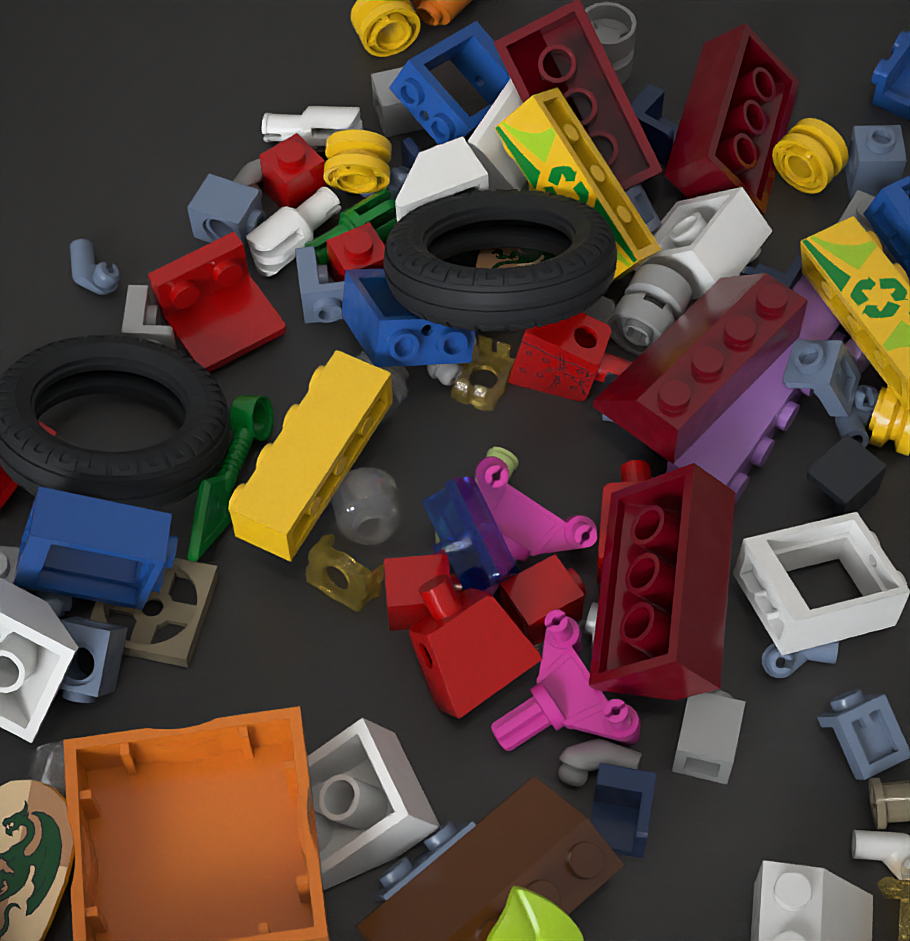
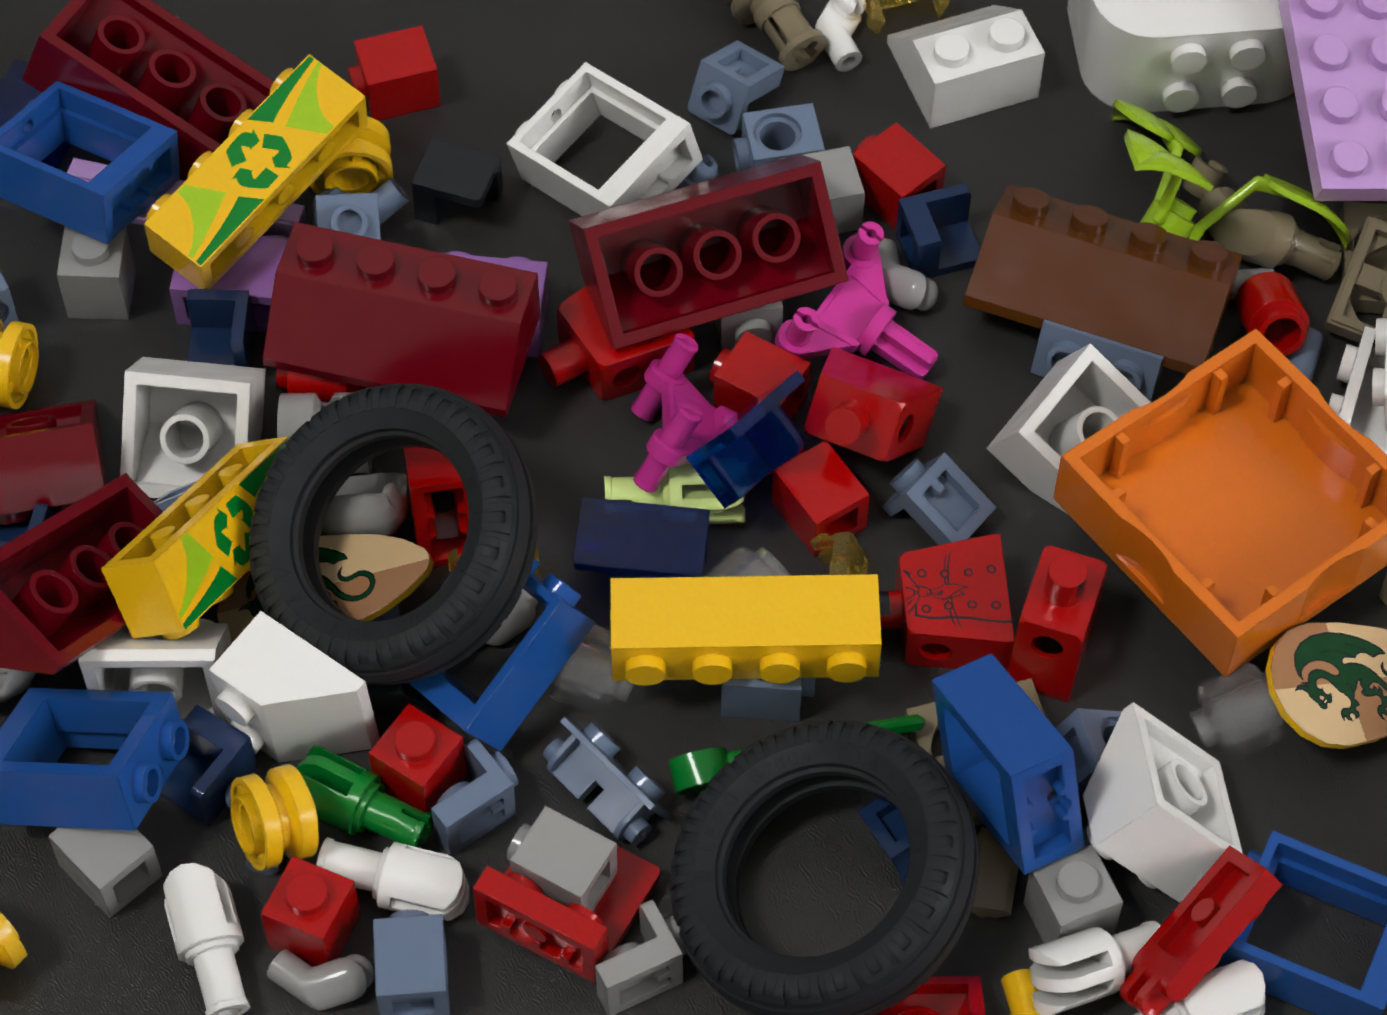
camera: 120 degrees left, 0 degrees up
(206, 680) = (1062, 607): none -> red torso
(228, 299) = (564, 859): none -> light grey brick
(273, 632) = (951, 604): none -> red torso
(281, 372) = (627, 796): none -> sand blue hinge
(368, 673) = (939, 499): none -> sand blue bracket
(444, 448) = (641, 539): none -> clear blue panel
(698, 805) = (895, 168): none -> red brick
(769, 750) = (776, 135): none -> sand blue brick

